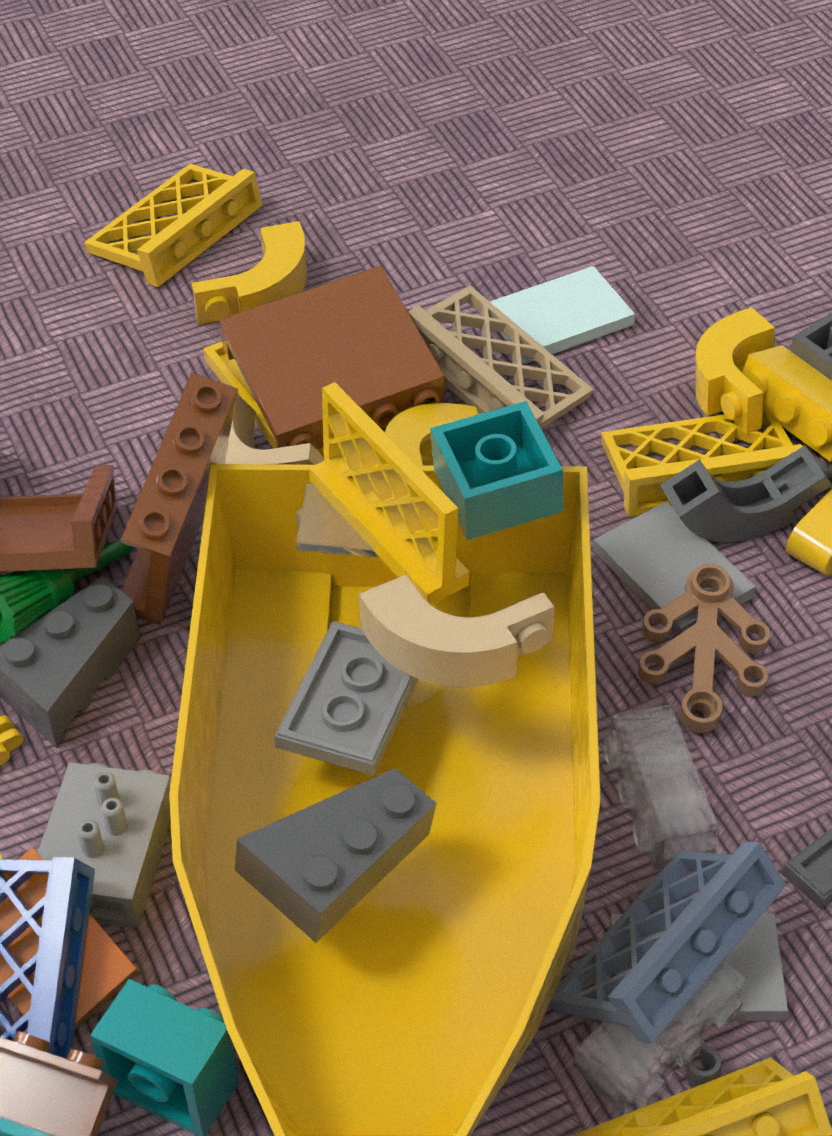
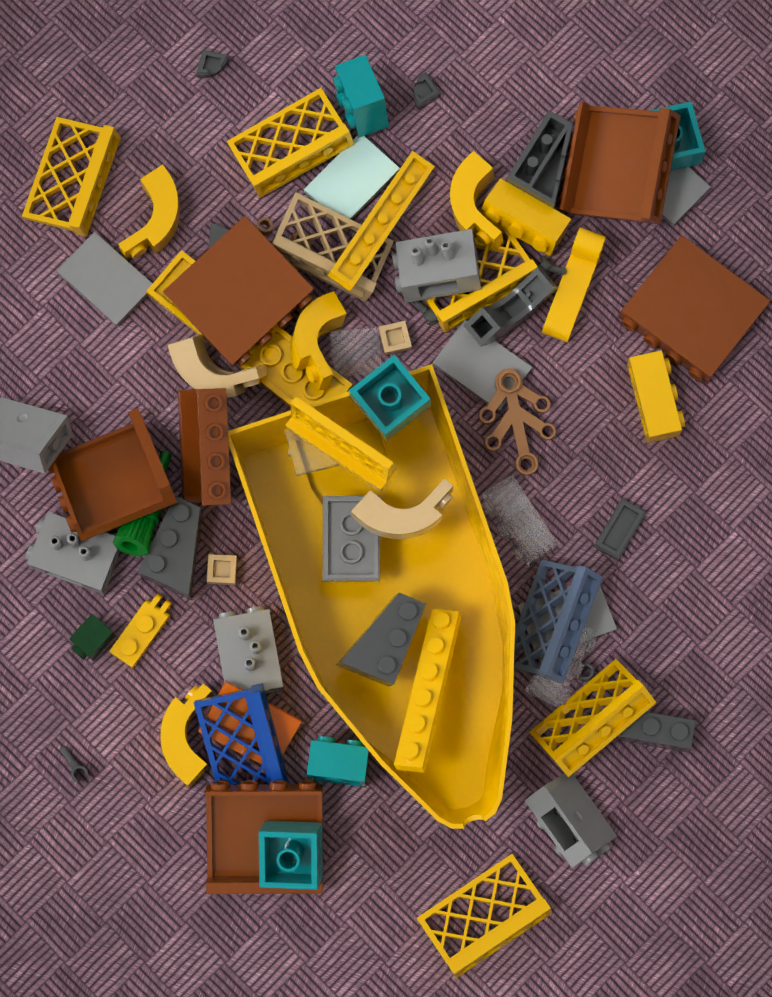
camera: 20 degrees left, 30 degrees up
(126, 711) = (222, 569): none -> tan plate
(155, 331) = (105, 279): none -> light grey tile
(372, 950) = (427, 691): none -> yellow plate
(420, 164) = (211, 64): none -> dark grey tile
(504, 264) = (296, 161): none -> yellow fence
(578, 347) = (381, 221): none -> yellow plate
(608, 214) = (360, 96): none -> teal brick
(609, 484) = (429, 315): none -> dark grey hand
(647, 414) = (437, 266): none -> light grey piece
(704, 252) = (425, 91): none -> dark grey tile

